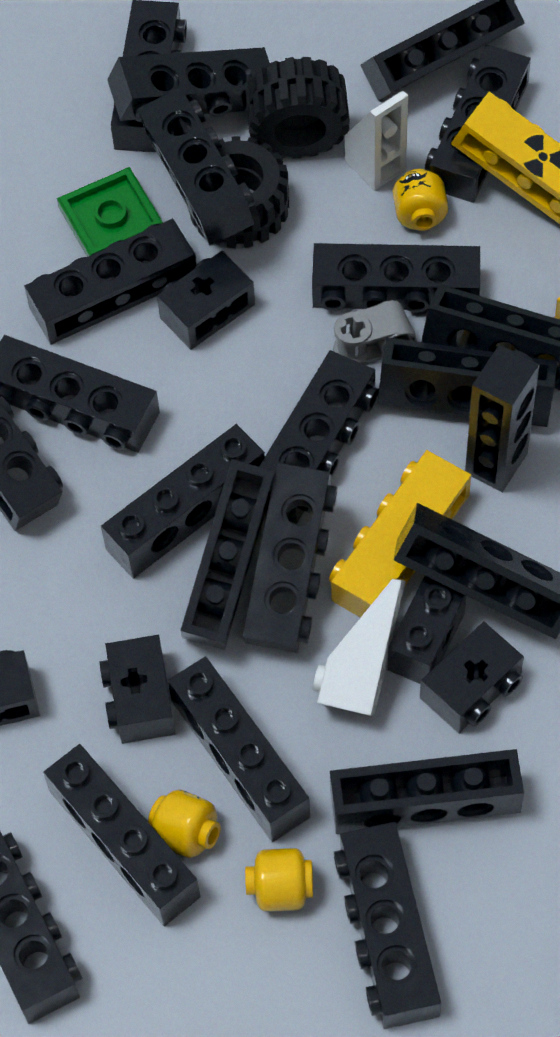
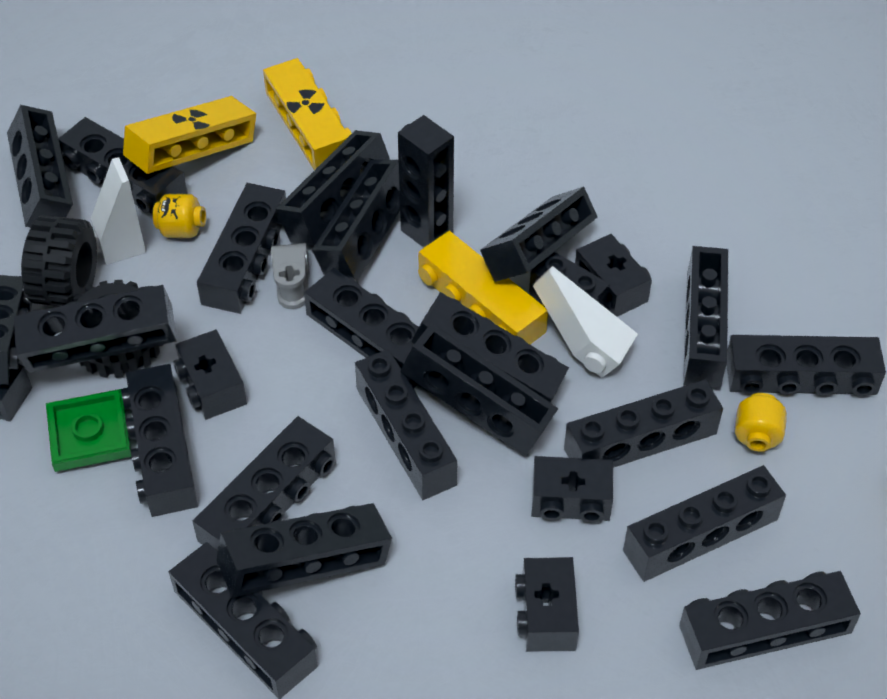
camera: 80 degrees left, 10 degrees down
(185, 822) = (698, 474): yellow head -> none

